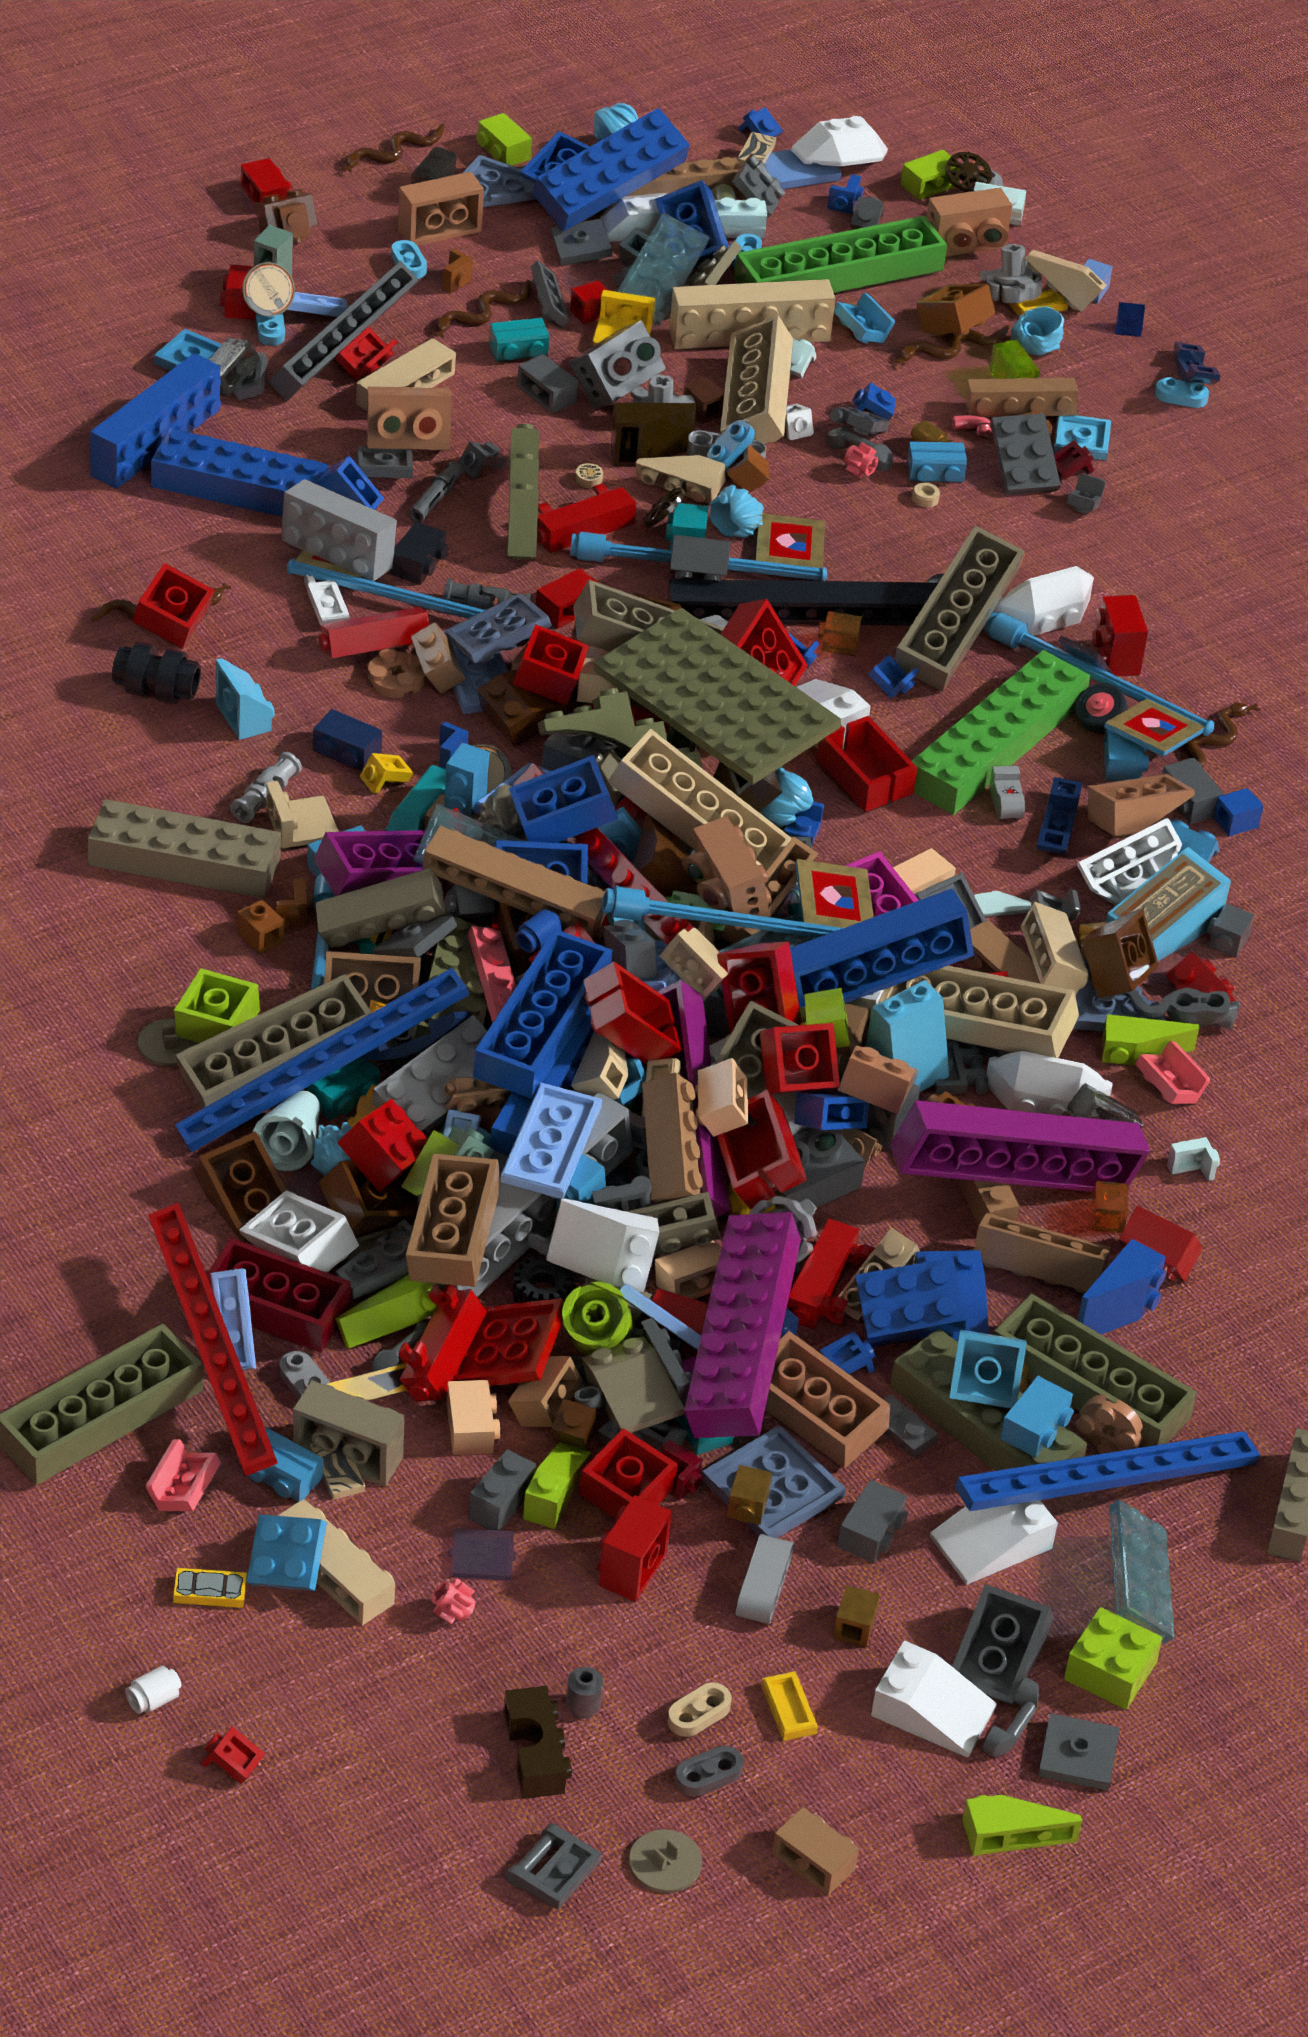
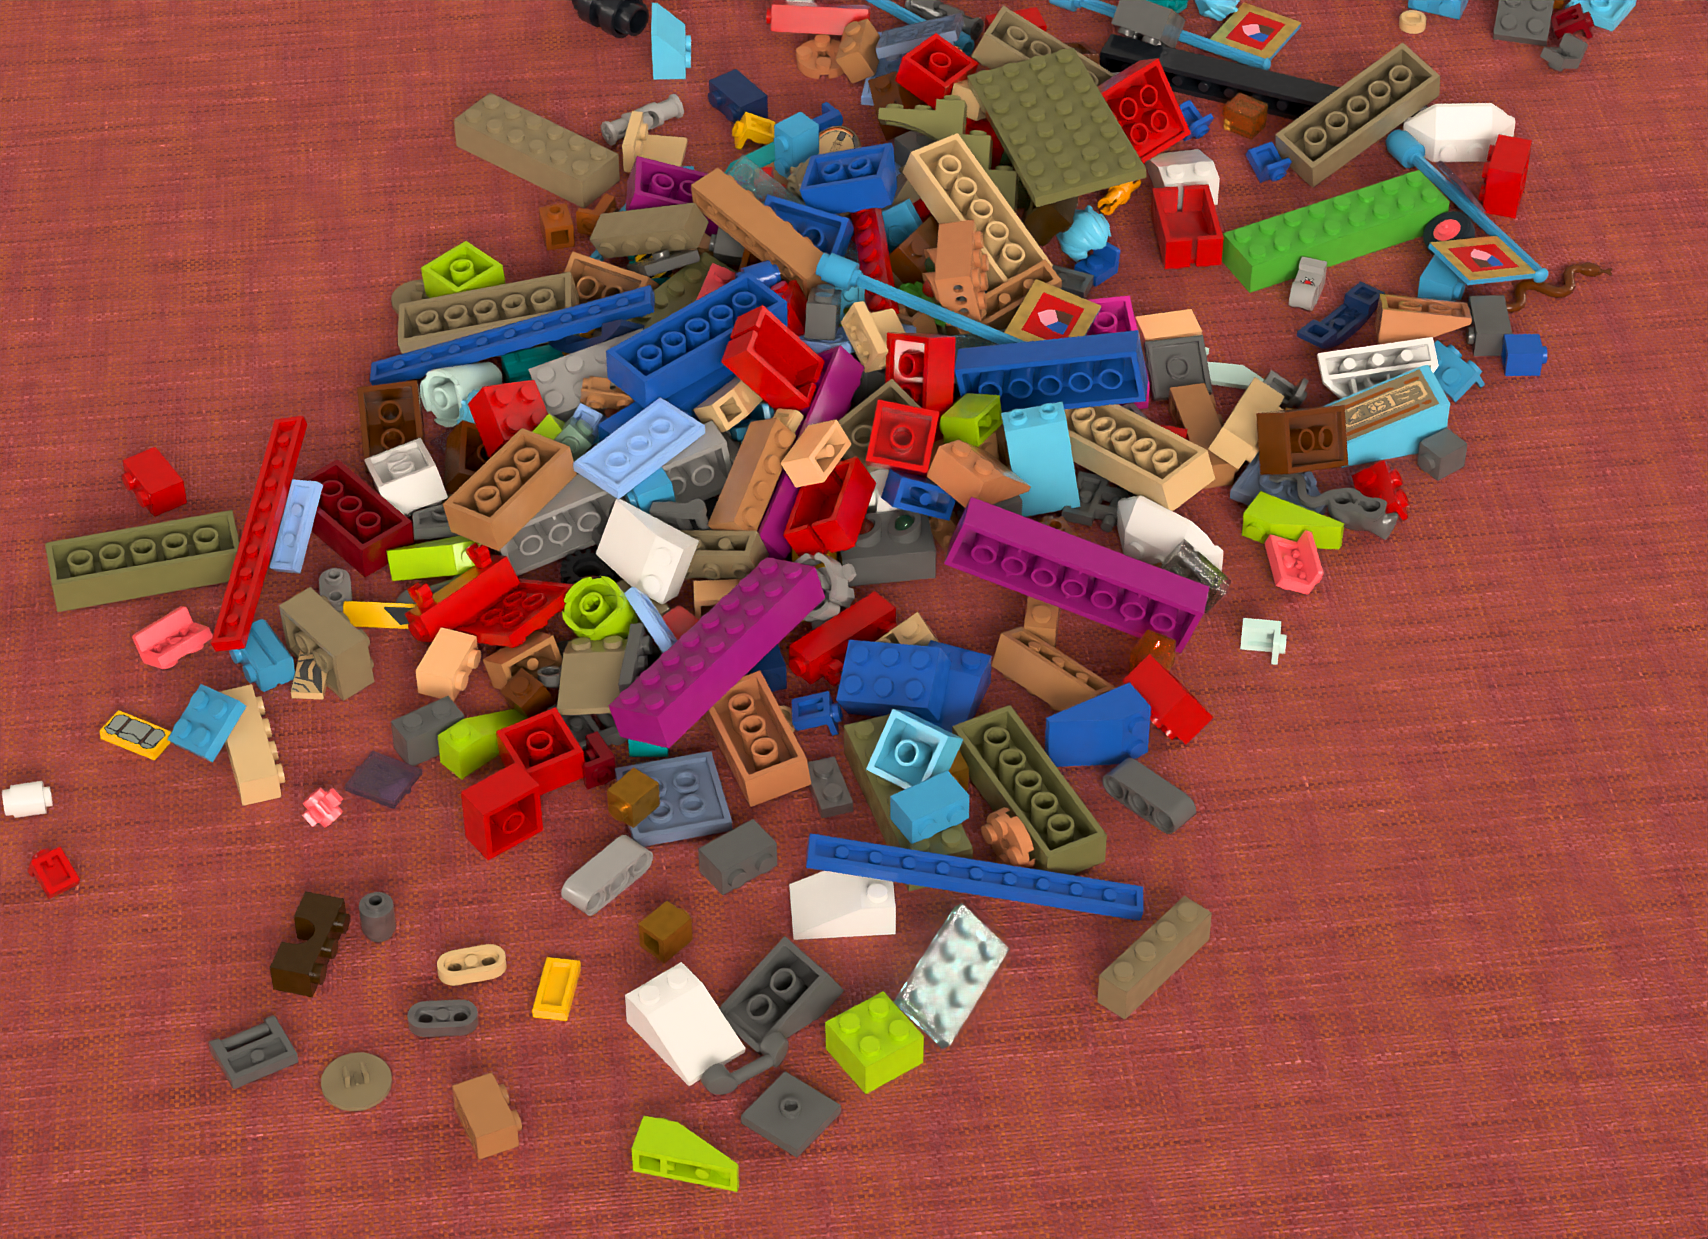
camera: 30 degrees right, 0 degrees up
(43, 1316) = (153, 482): none -> red brick
(1192, 1342) = (1149, 795): none -> dark grey beam

